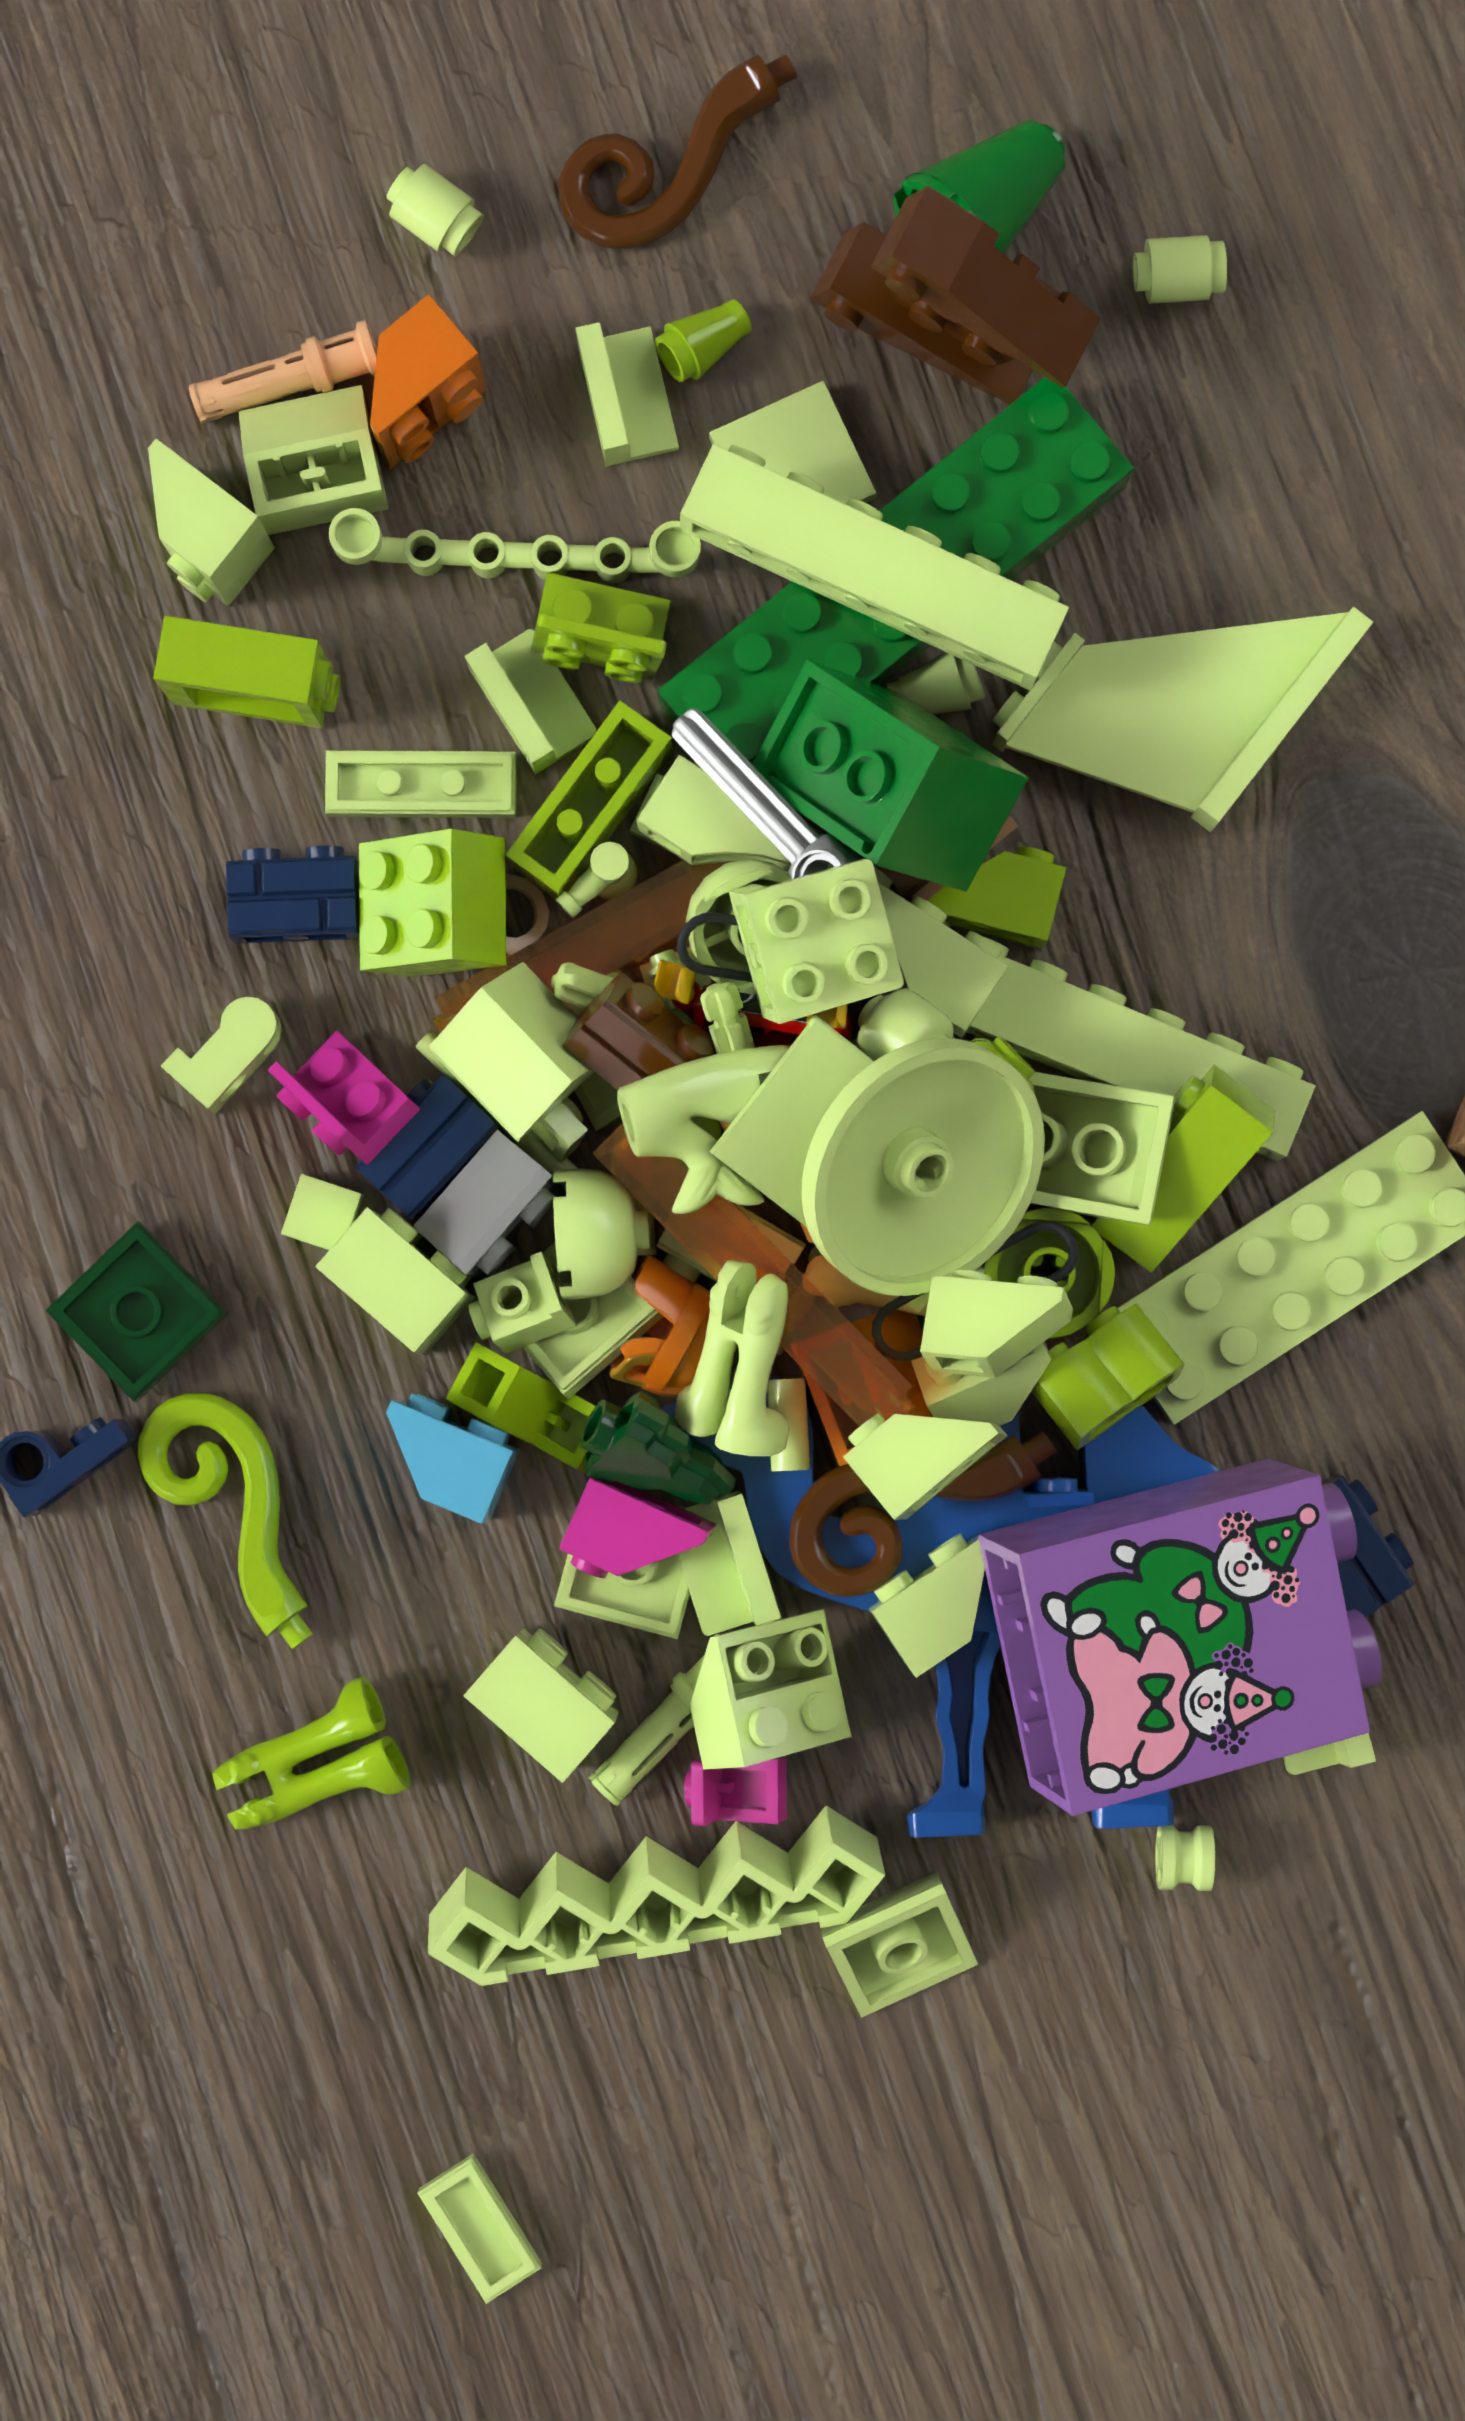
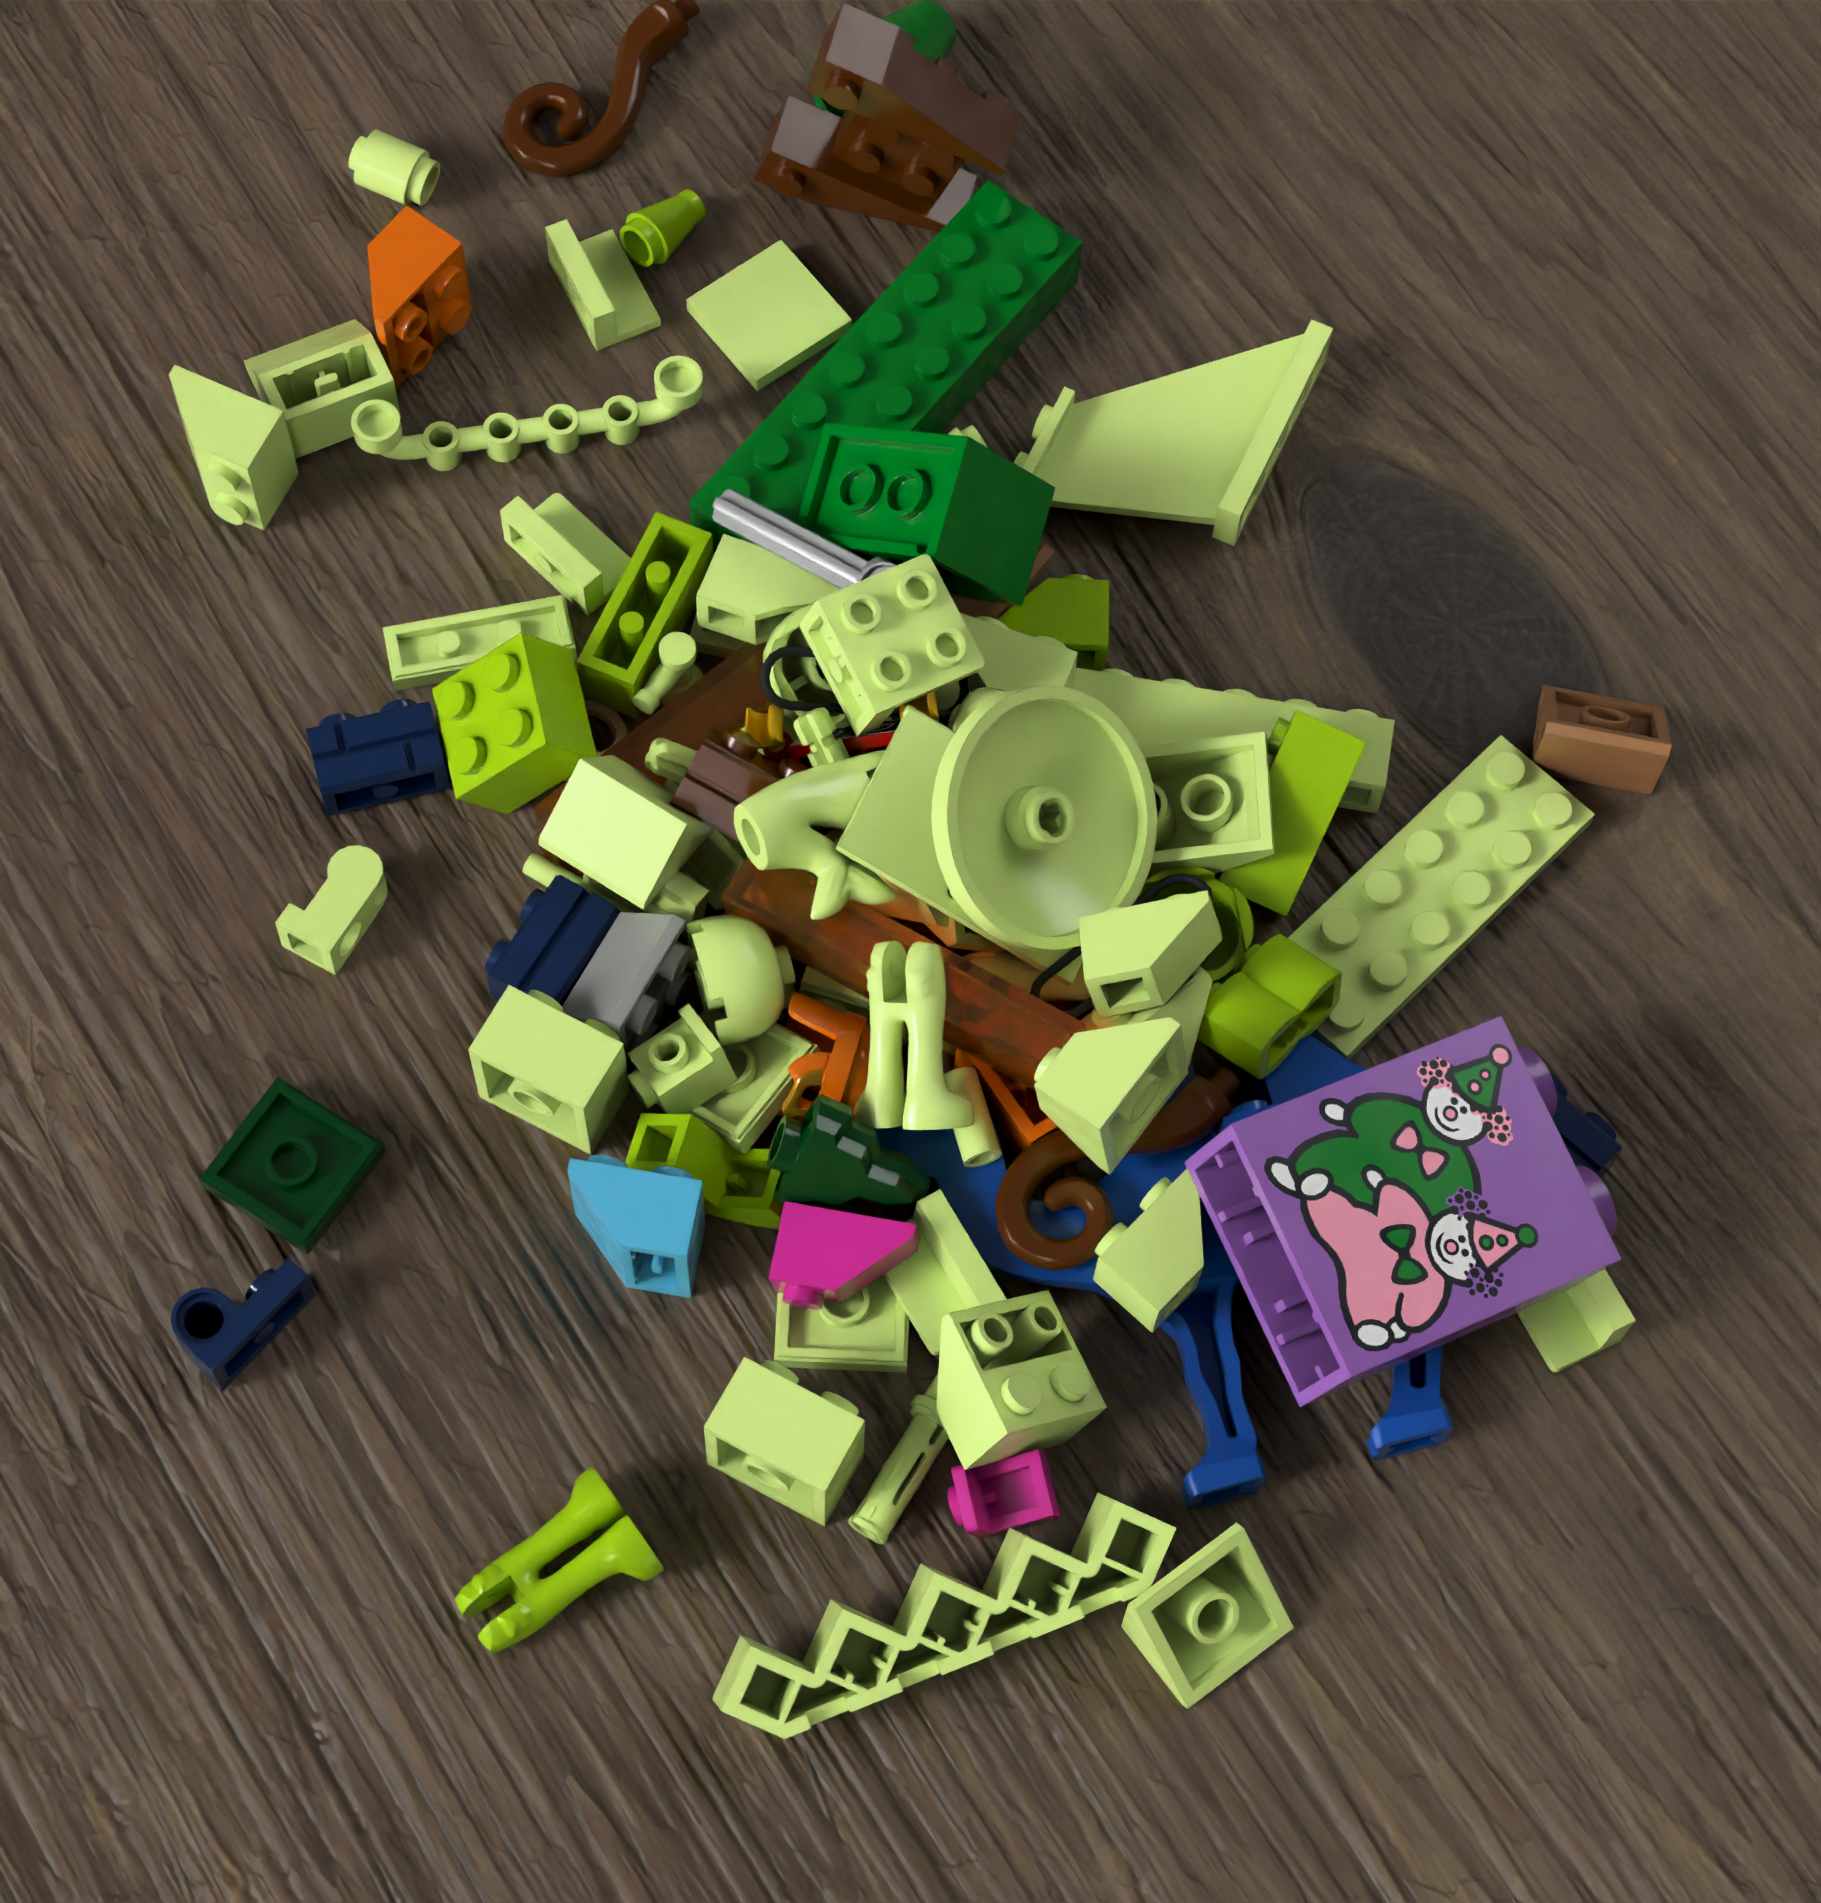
camera: 15 degrees left, 20 degrees down
(245, 672) = (294, 562): lime window -> none
(262, 1579) = (468, 1394): lime plant -> none
(314, 366) = (308, 311): light nougat pin -> none
(320, 1212) = (450, 1036): yellowish green tile -> none
(348, 1097) = (464, 918): dark pink bracket -> none
(600, 628) = (623, 475): lime bracket -> none
(873, 565) = (866, 349): yellowish green brick -> none
(1180, 269) = (1080, 95): yellowish green brick -> none
(1185, 1857) = (1474, 1466): yellowish green wheel -> none

